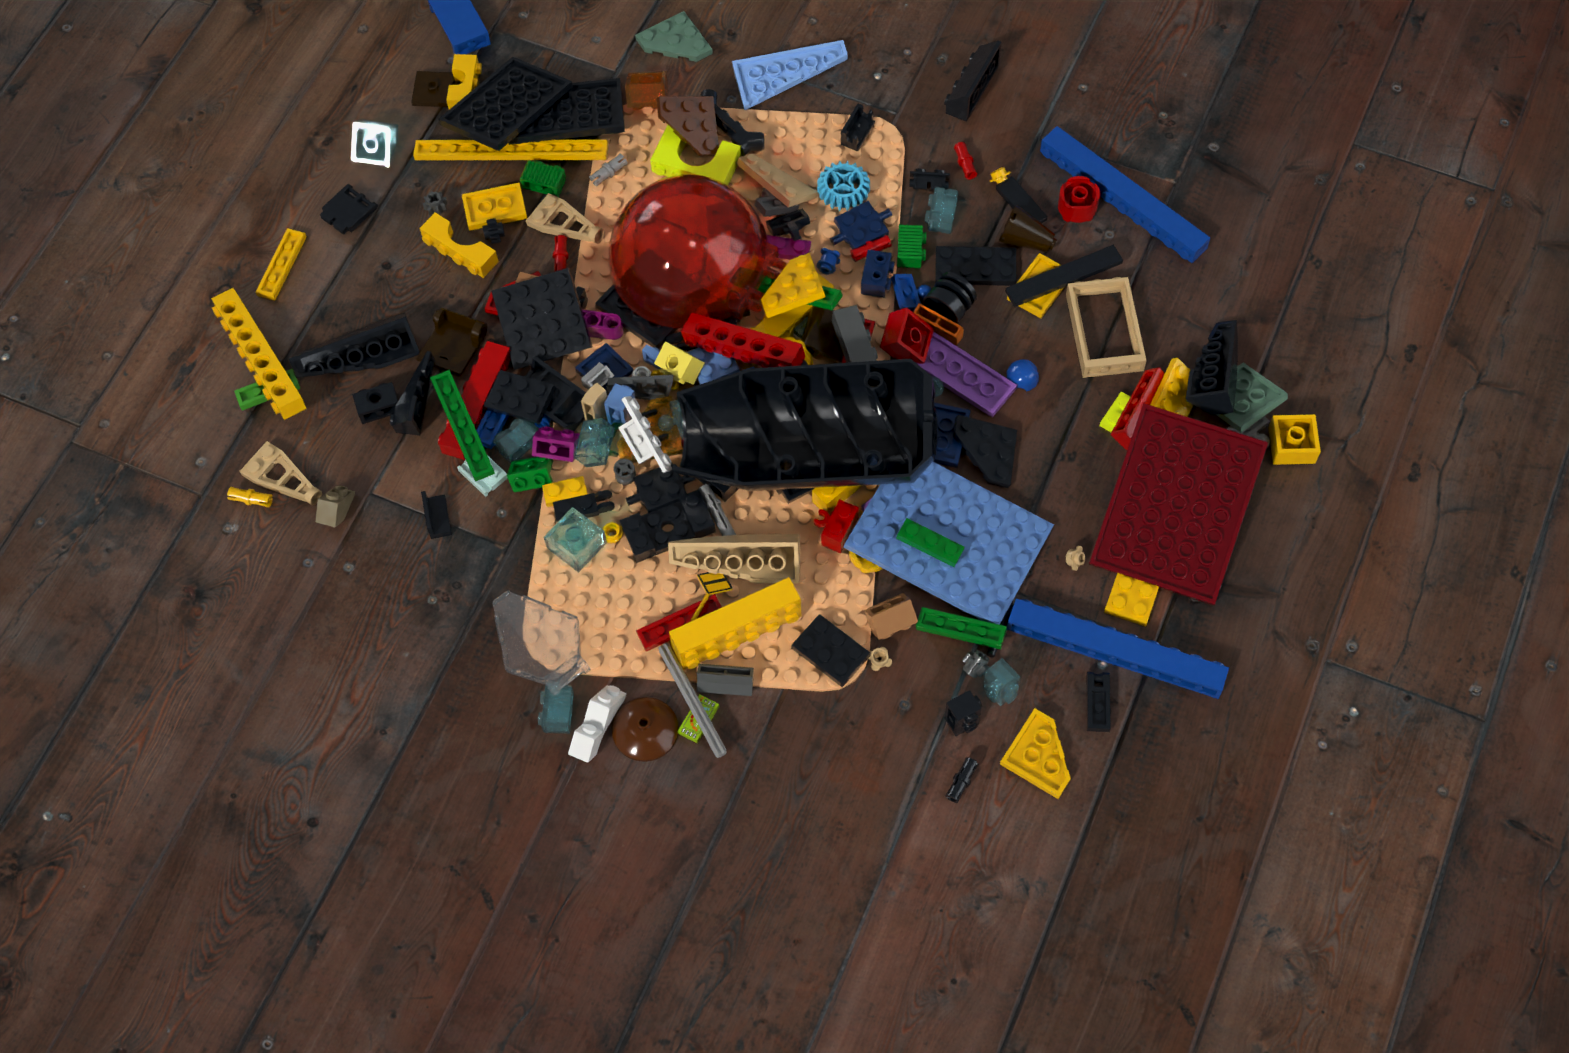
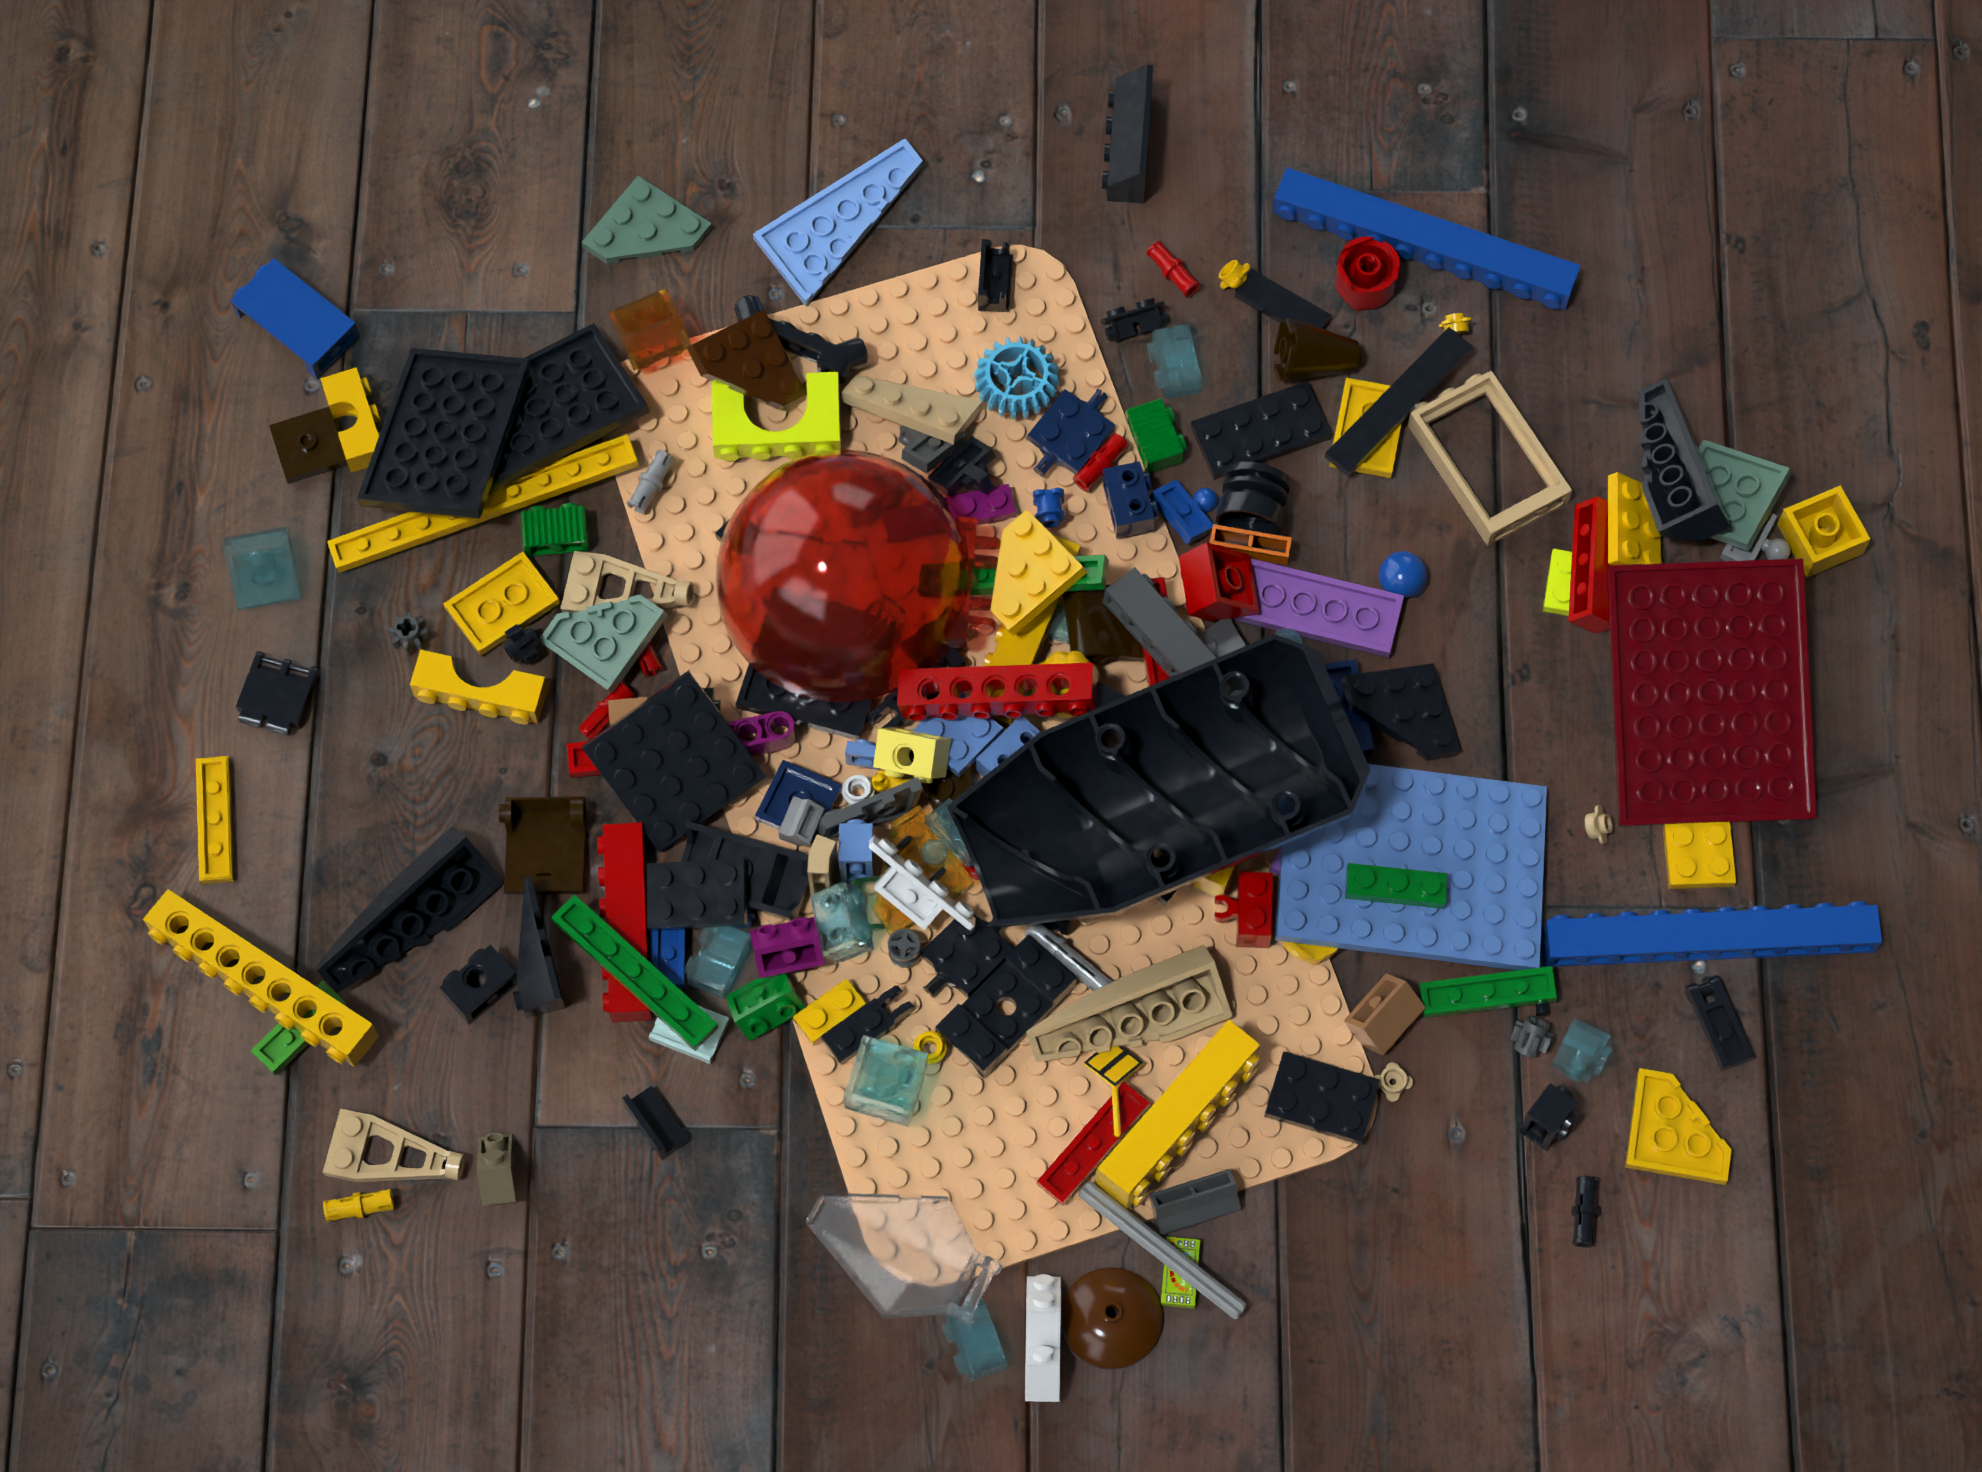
camera: 25 degrees left, 5 degrees up
(540, 242) = (605, 637): none -> sand green plate
(1121, 246) = (1457, 323): none -> yellow plate

